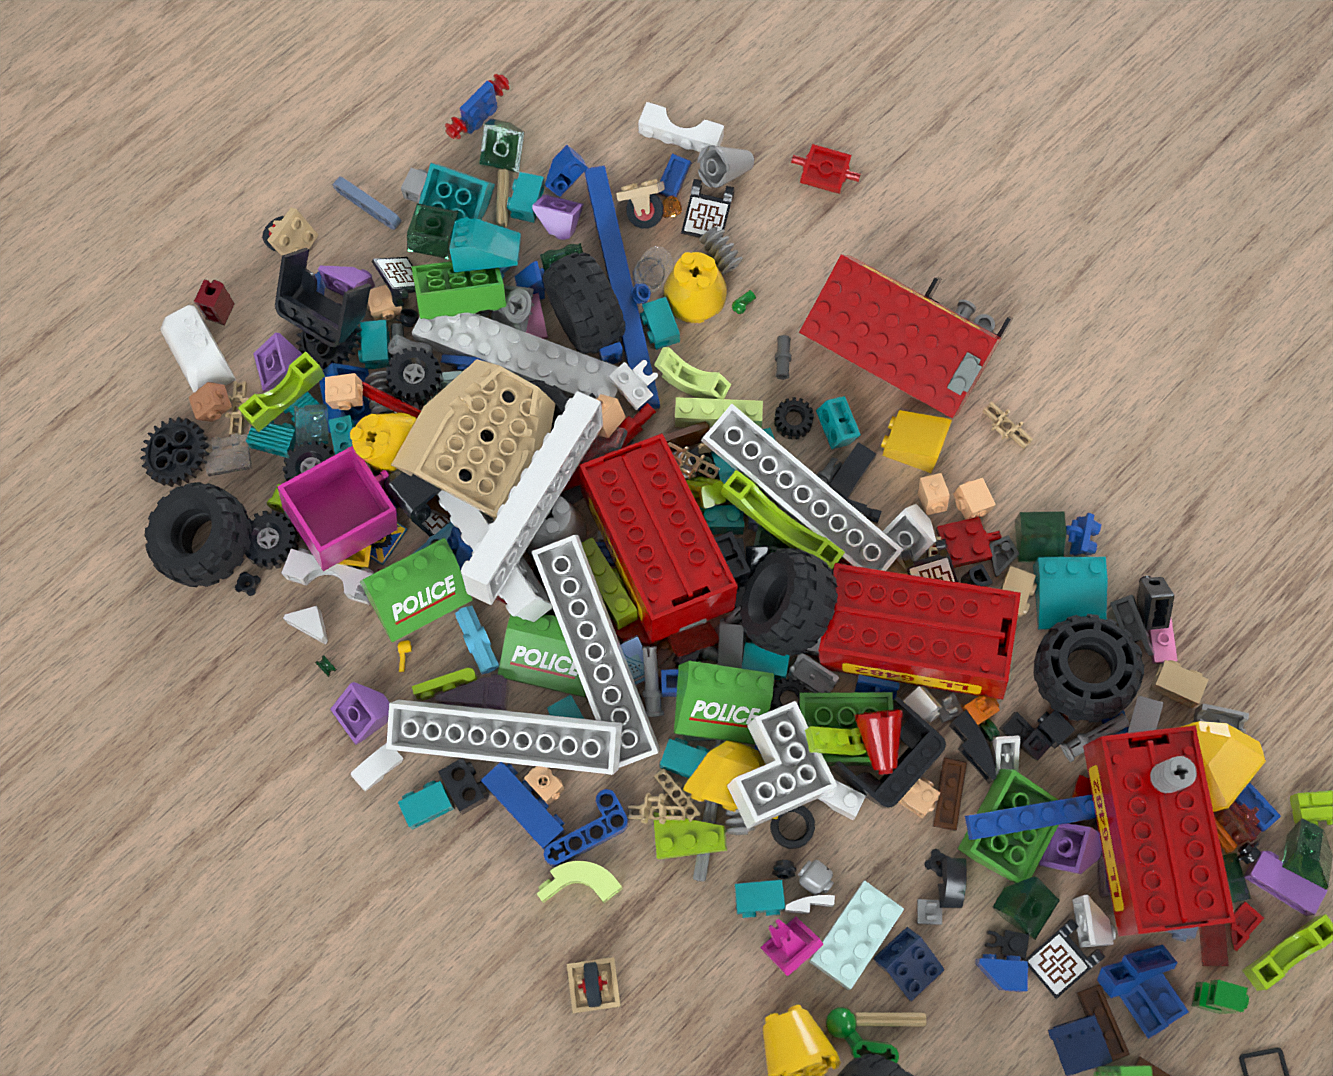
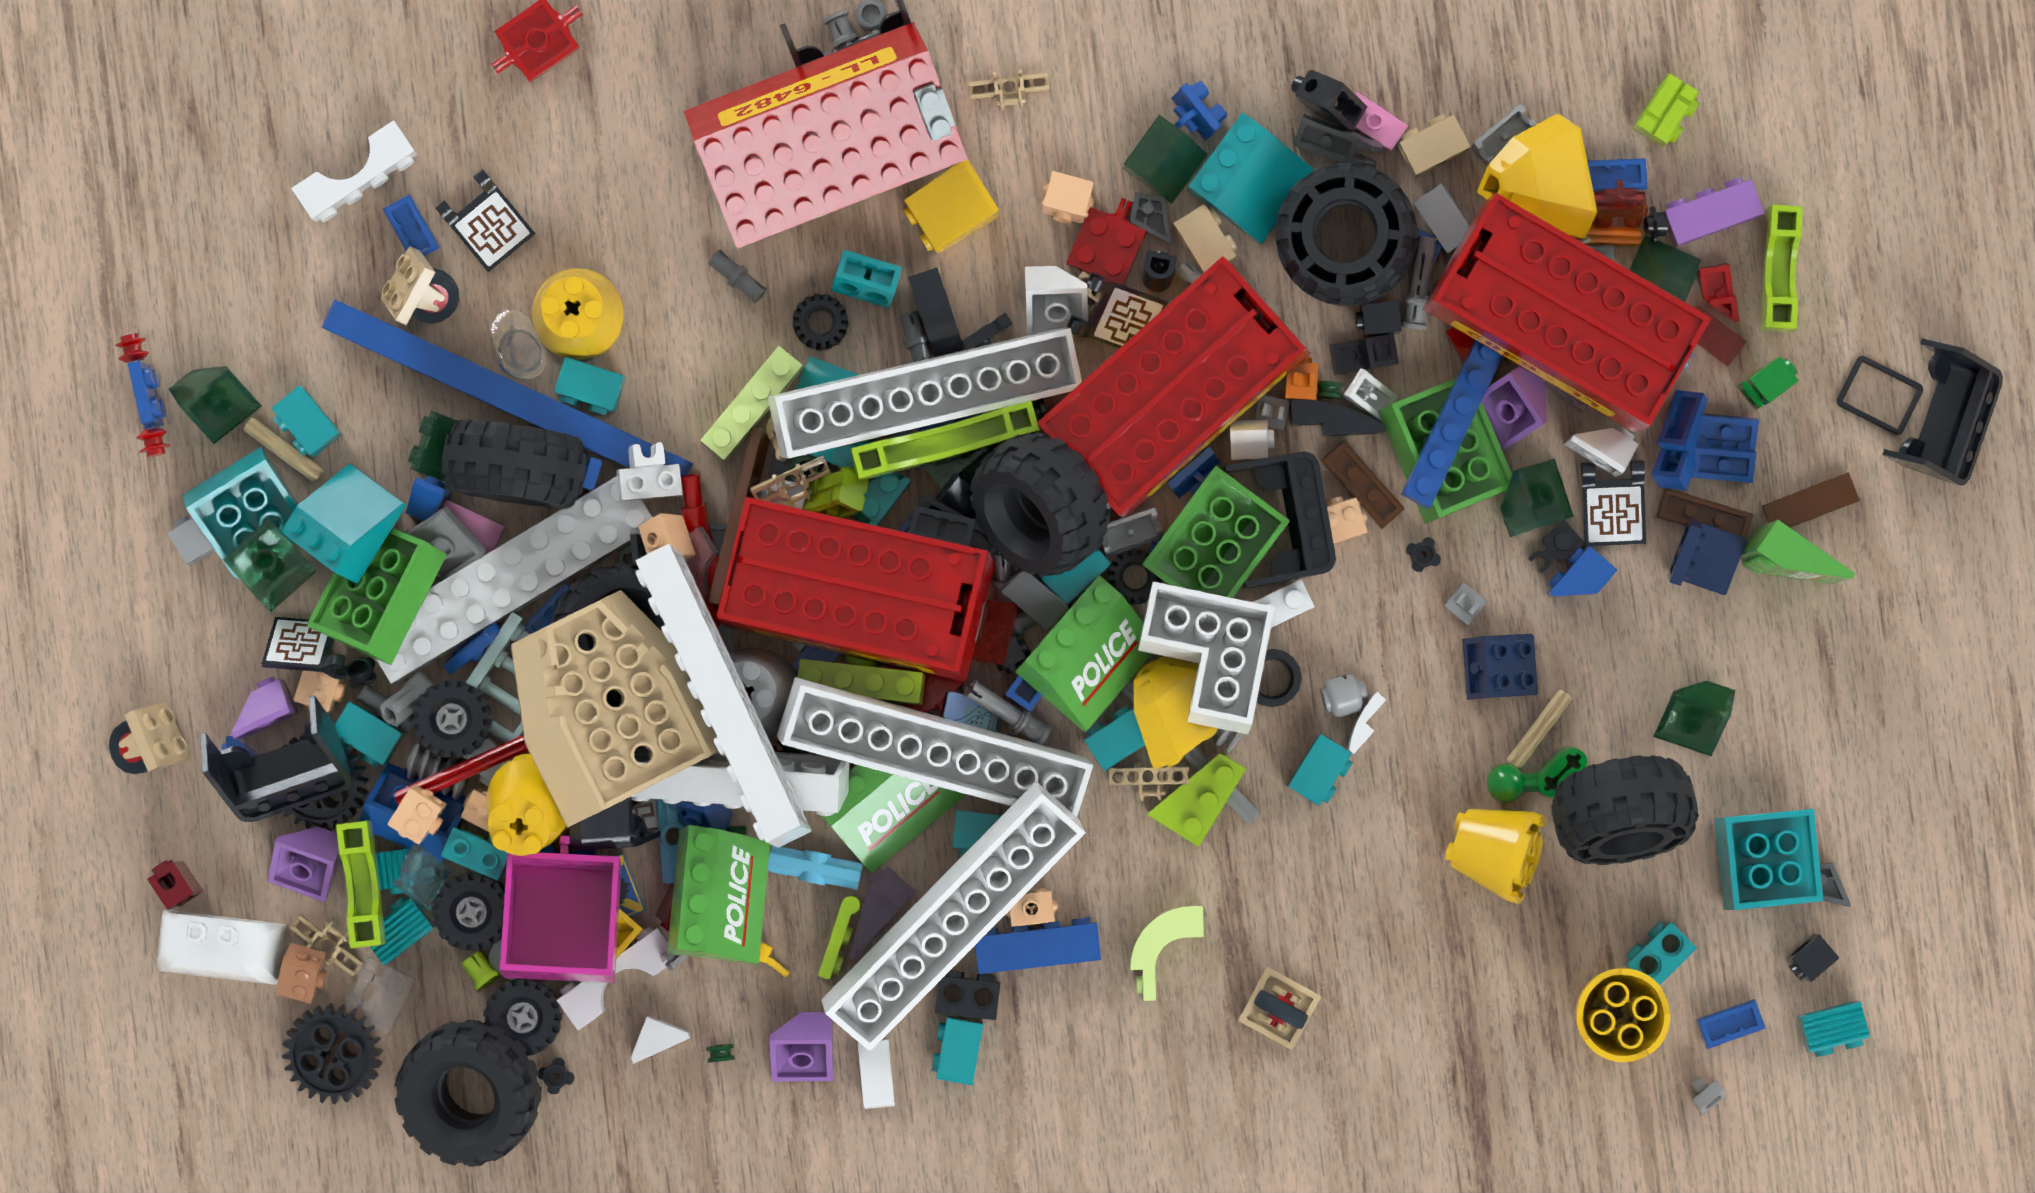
camera: 55 degrees left, 15 degrees up
(366, 203) = (169, 616): sand blue beam -> none
(512, 310) = (456, 551): light grey gear -> none
(558, 215) = (358, 401): medium lavender slope -> none
(564, 170) = (307, 351): blue slope -> none
(583, 833) = (1116, 904): blue beam -> none
(644, 292) = (543, 379): blue plate -> none
(644, 810) = (1140, 823): tan piece -> none
(672, 207) = (449, 259): clear orange tile -> none
(690, 379) = (687, 402): yellowish green arch -> none
(720, 250) = (552, 246): light grey piece -> none
(723, 164) = (447, 161): light grey cone -> none
(739, 304) = (631, 269): green arm -> none
(784, 869) = (1310, 721): black plate -> none
(790, 945) = (1392, 775): dark pink plate -> none
(834, 741) = (1224, 571): lime plate -> none
(856, 935) = (1432, 699): light aqua brick -> none
(881, 737) = (1256, 518): red cone -> none
(933, 494) = (1030, 239): light nougat head -> none
(954, 883) = (1451, 551): black slope -> none
(1173, 774) = (1540, 266): light grey piece -> none
(1308, 853) = (1704, 165): clear green slope -> none

